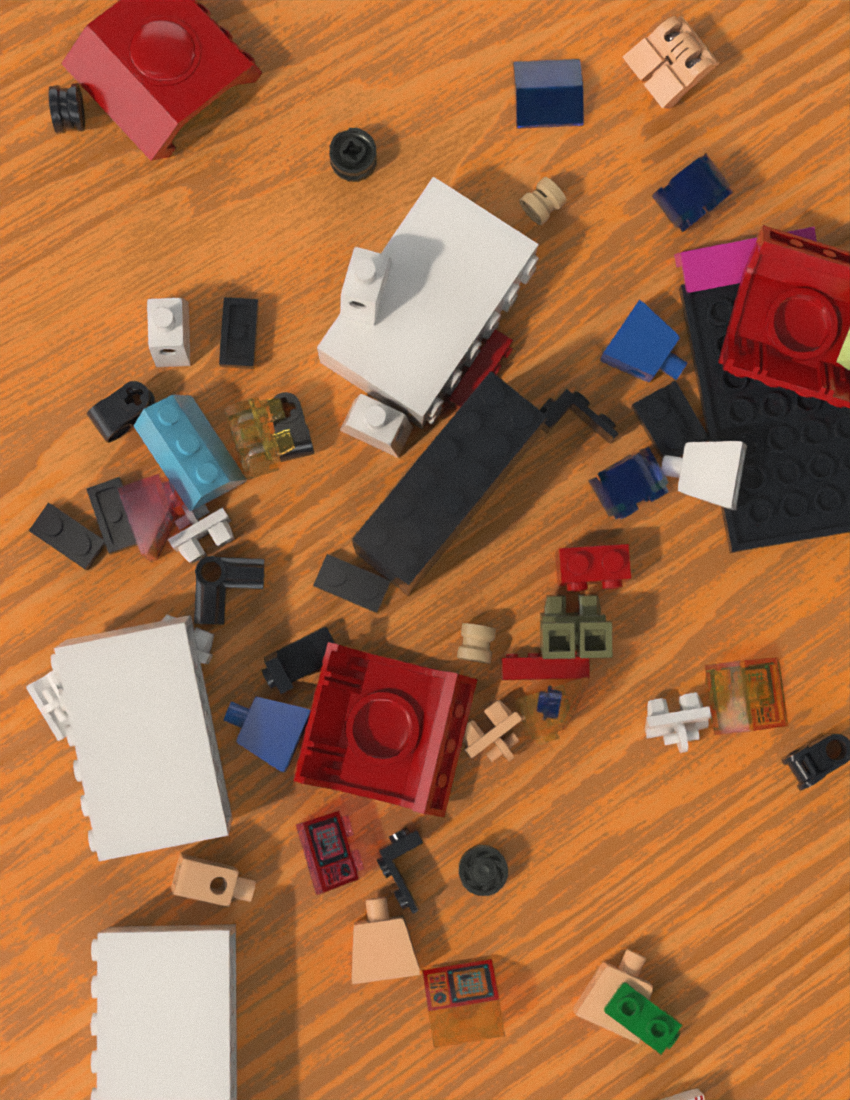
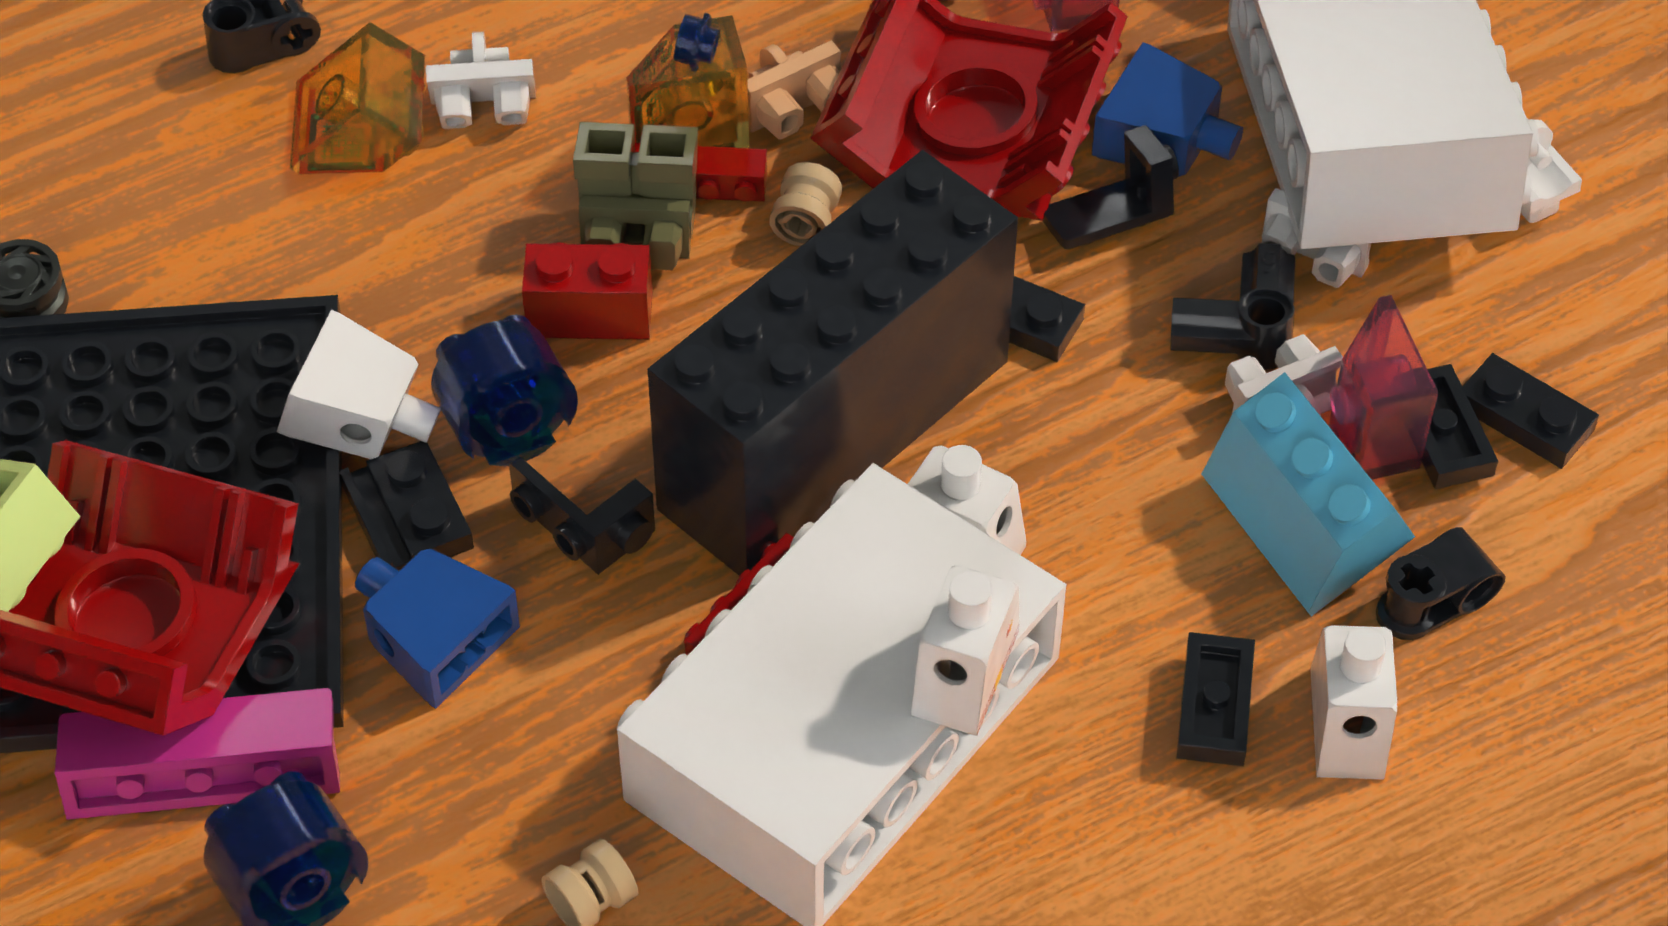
camera: 170 degrees left, 30 degrees down
(250, 432) = (1182, 504): clear yellow hips -> none
(297, 427) = (1118, 538): black piece -> none

